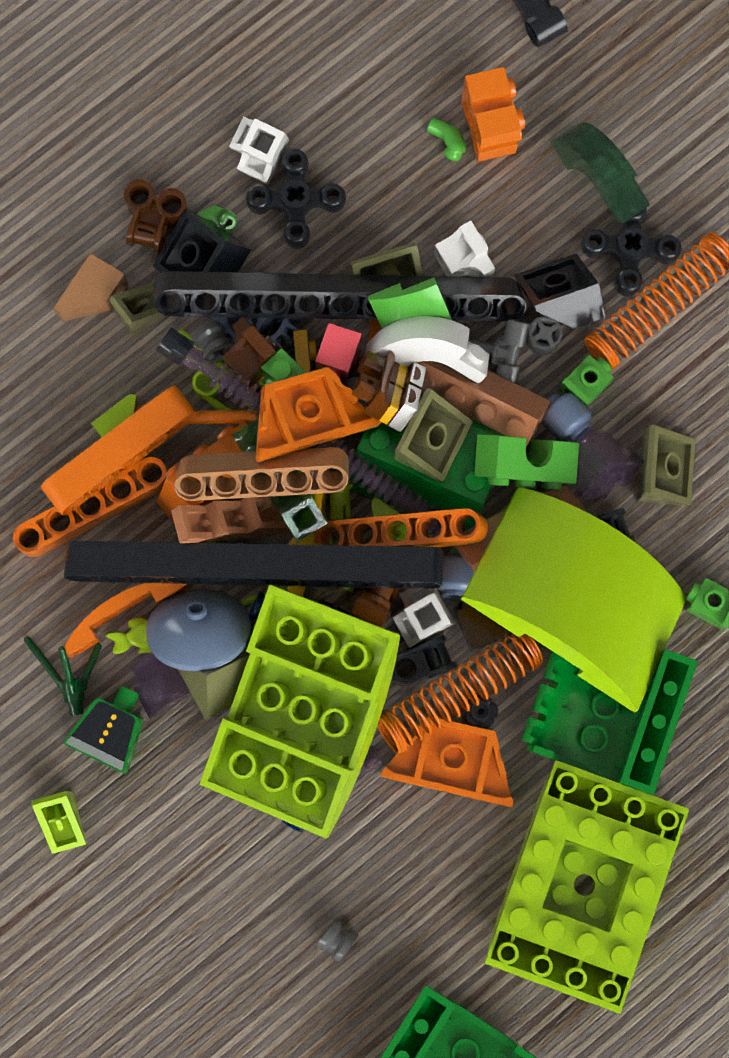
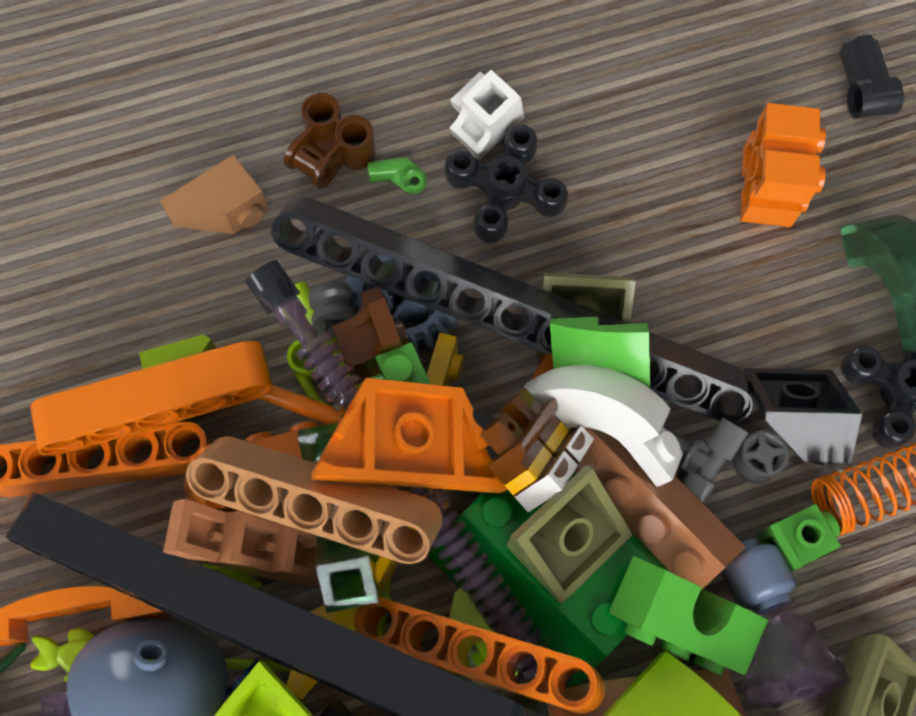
camera: 20 degrees right, 10 degrees down
(136, 308) = (254, 239): olive slope -> none
(200, 247) = (372, 193): black slope -> none
(339, 351) = (488, 376): coral brick -> none
(340, 503) = (415, 577): lime pin -> none
(451, 136) = (718, 177): bright green arm -> none
(464, 254) = (692, 316): white brick -> none

